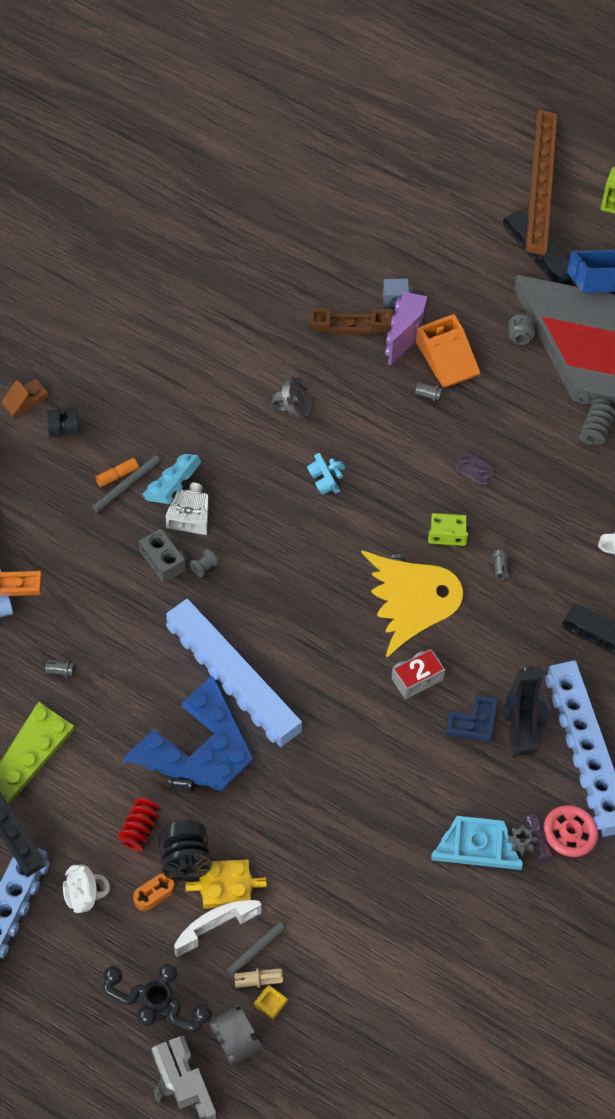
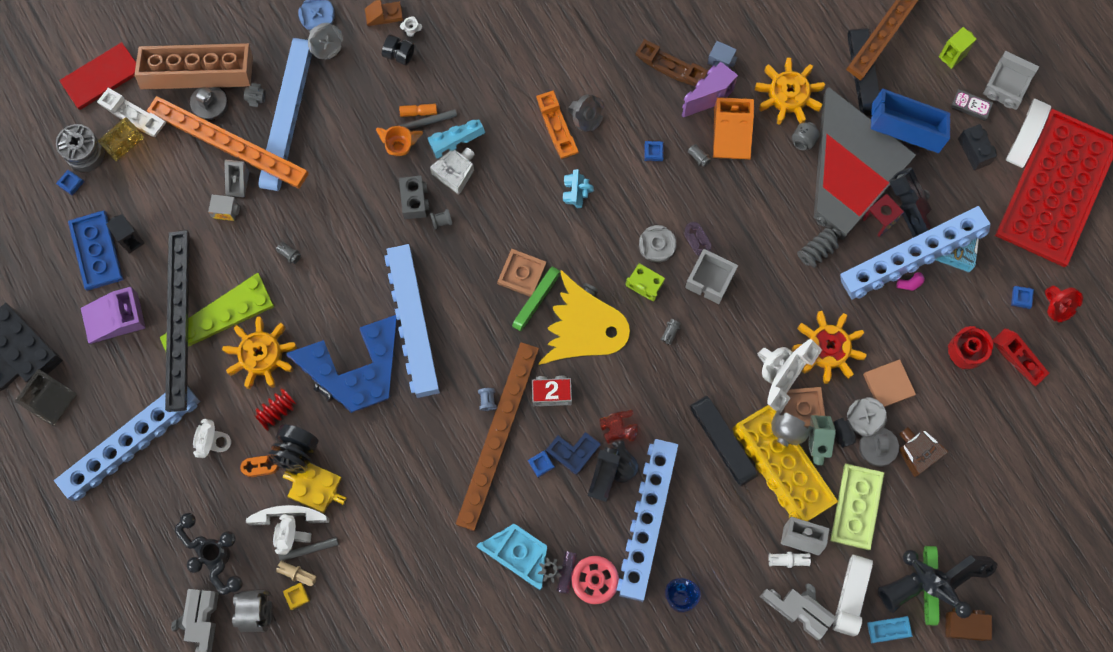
camera: 30 degrees right, 15 degrees up
(61, 392) = (411, 21): none -> white plate
(78, 771) = (259, 364): none -> light orange gear
(114, 506) = (398, 139): none -> orange piece
(227, 940) = (285, 535): none -> white tile
(268, 426) = (556, 125): none -> orange slope
(317, 578) = (521, 272): none -> nougat tile
(348, 594) = (536, 298): none -> bright green beam
(356, 711) = (487, 399): none -> sand blue bush
(380, 407) = (653, 151): none -> blue tile
(387, 745) = (497, 437): none -> dark orange plate
(437, 490) = (657, 244): none -> light grey tile
(447, 749) = (541, 464): none -> blue tile
(481, 296) = (789, 91): none -> light orange gear
(501, 675) = (615, 425): none -> clear red animal
(511, 492) = (711, 276): none -> light grey piece

